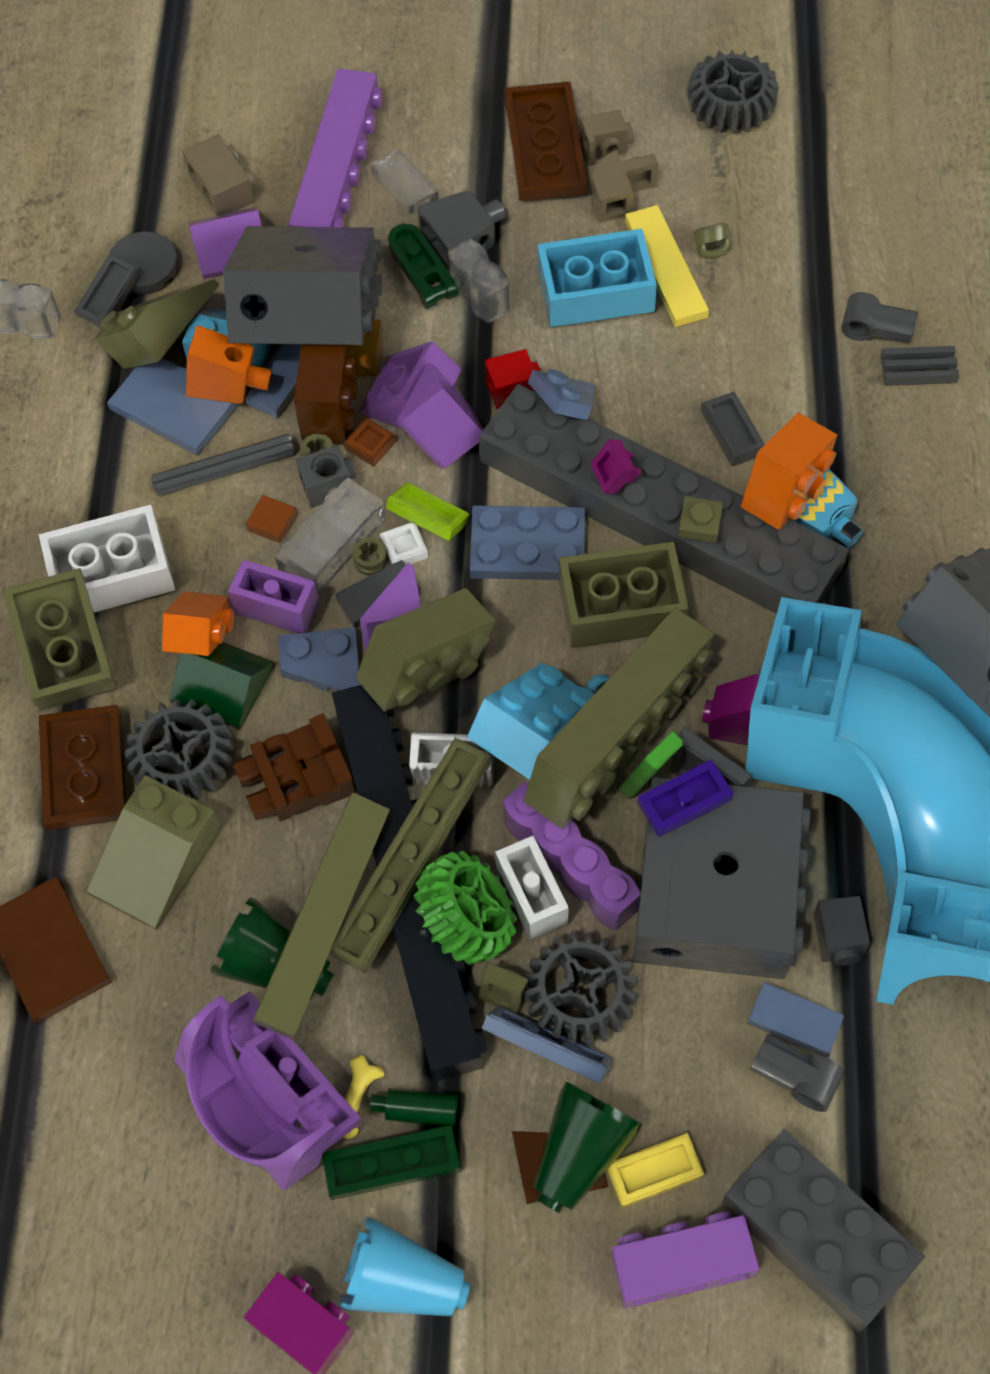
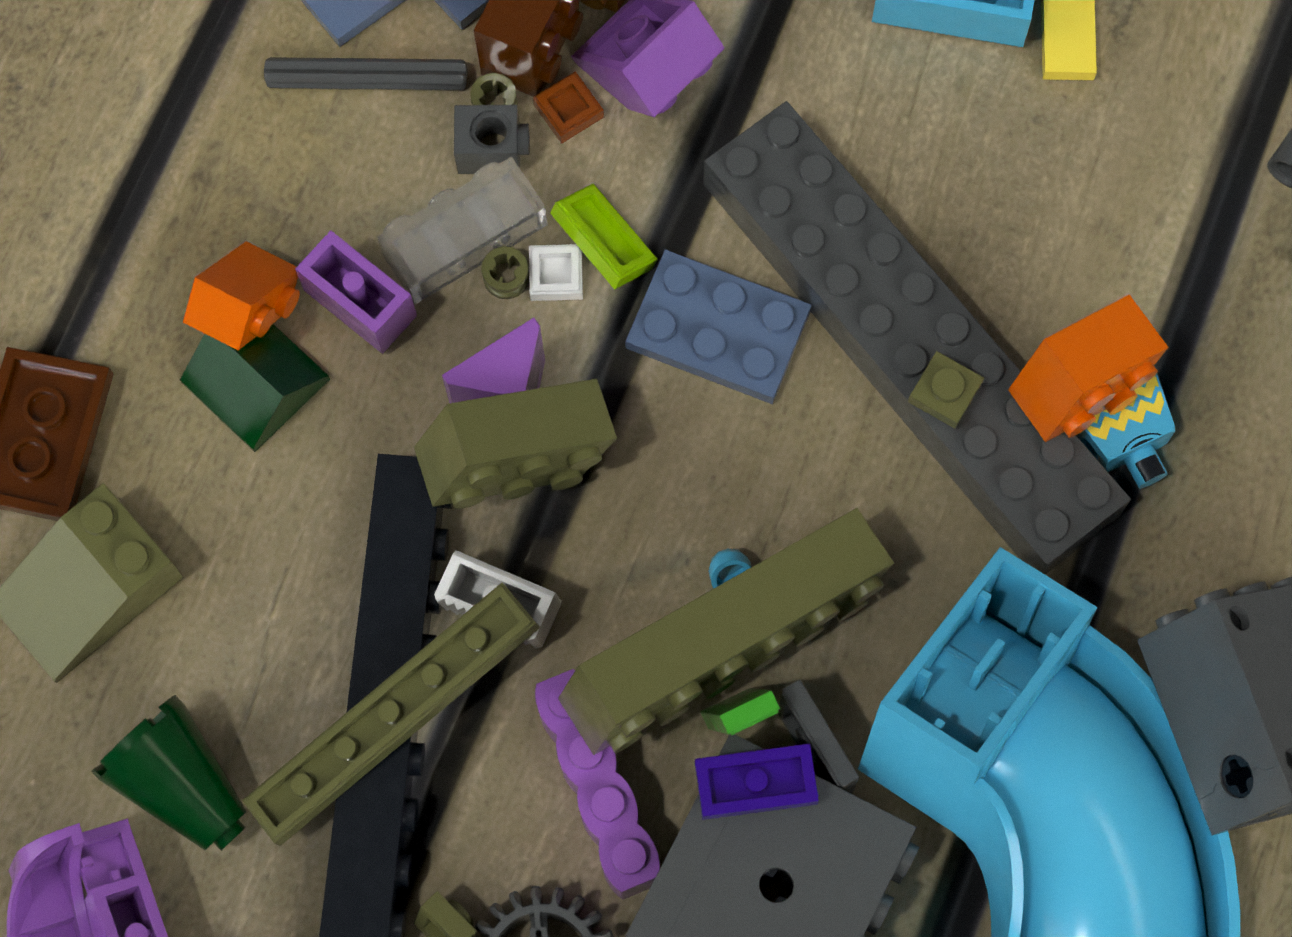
camera: 20 degrees right, 10 degrees up
(59, 639) = (62, 256): olive slope -> none
(117, 555) = (163, 166): white brick -> none
(211, 737) = (207, 460): dark grey gear -> none
(271, 519) = (399, 173): dark orange tile -> none
(281, 767) = (327, 565): reddish brown hips -> none
(320, 916) = (249, 754): olive tile -> none
(321, 658) = (390, 394): sand blue wing -> none
(360, 596) = (478, 326): dark grey tile -> none
(439, 418) = (667, 112): medium lavender slope -> none
(465, 907) = (422, 812): bright green gear -> none
(507, 371) = (789, 77): red brick -> none
(526, 716) = (612, 586): medium azure brick -> none
(531, 888) = (529, 810): white brick -> none
(563, 394) = (843, 138): sand blue wing -> none
(614, 467) = (858, 275): magenta tile -> none
(620, 592) = (806, 449): olive brick -> none
(730, 710) = (878, 662): magenta slope -> none
(732, 428) = (1058, 258): dark grey tile -> none

